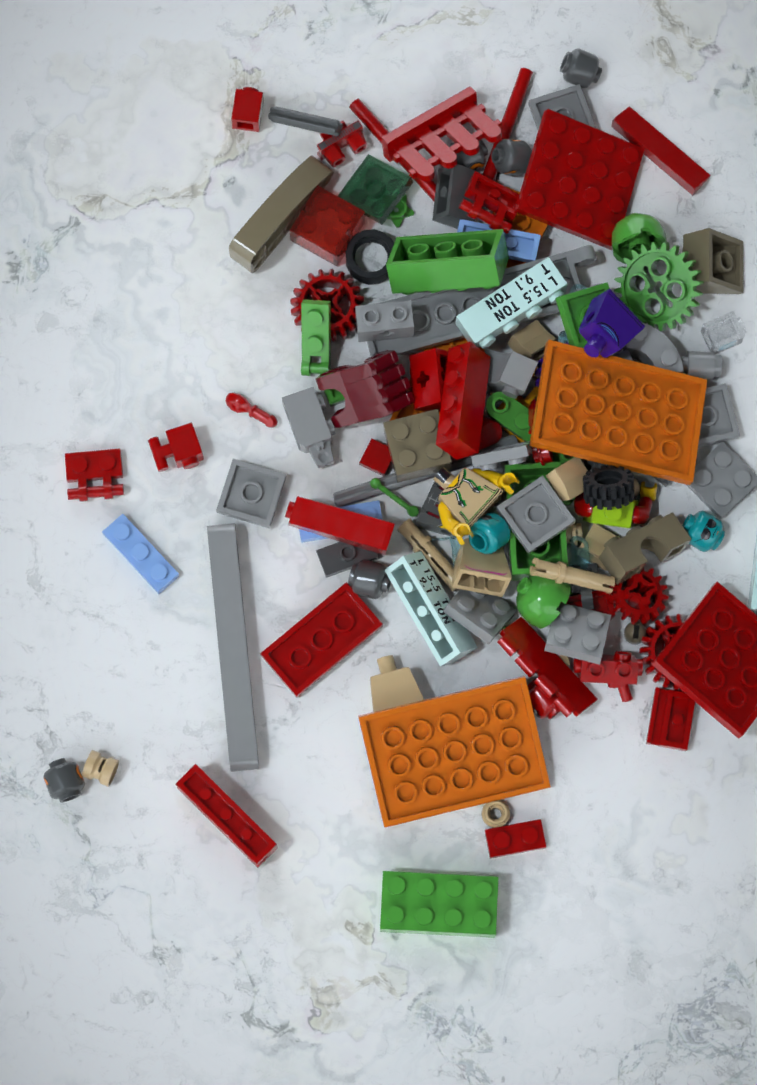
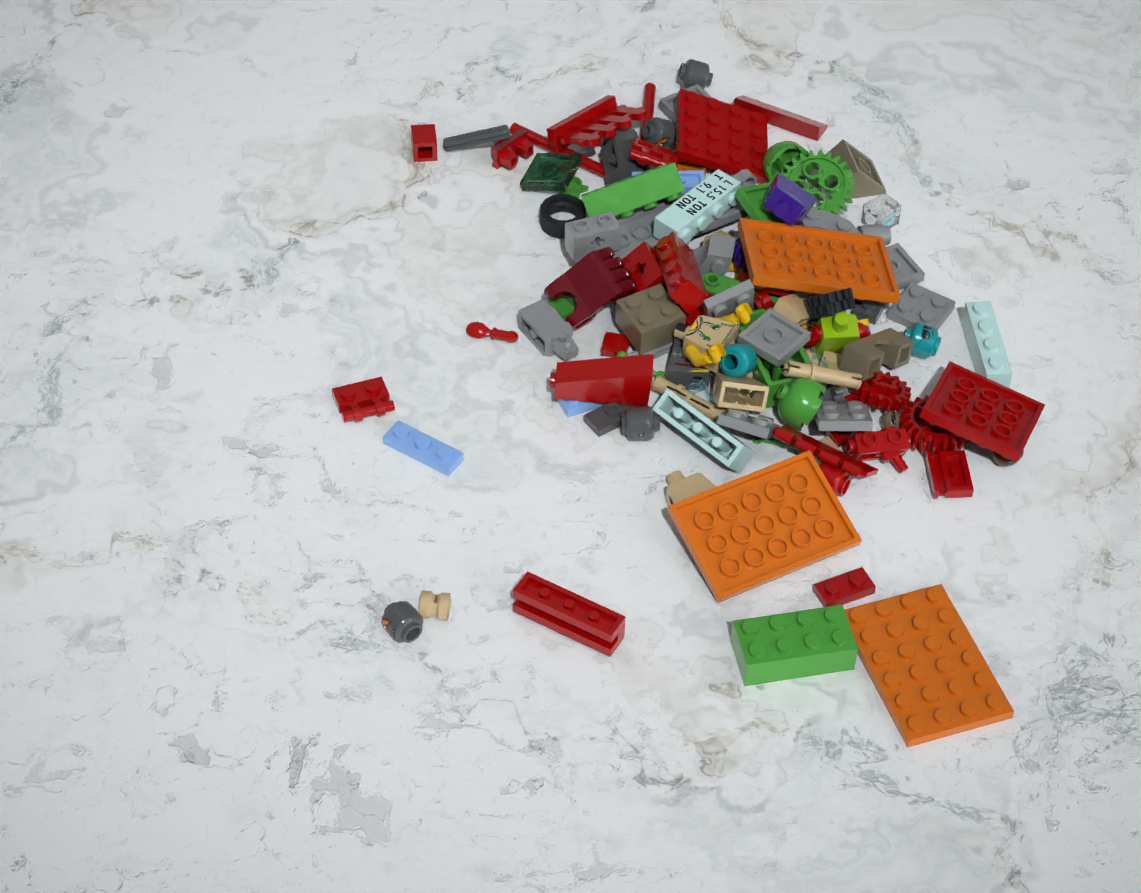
camera: 15 degrees left, 30 degrees down
(182, 445) = (437, 363): red brick -> none
(232, 647) = (532, 497): light grey beam -> none
(251, 493) = (511, 386): light grey plate -> none
(277, 214) = (472, 200): dark tan beam -> none
(315, 336) = (533, 264): bright green plate -> none
(321, 639) = (610, 476): red plate -> none
(325, 225) = (517, 200): clear red piece -> none
(340, 287) = (535, 251): red gear -> none
(499, 805) = (818, 570): tan plate -> none
(564, 951) = (926, 666): none -> orange plate

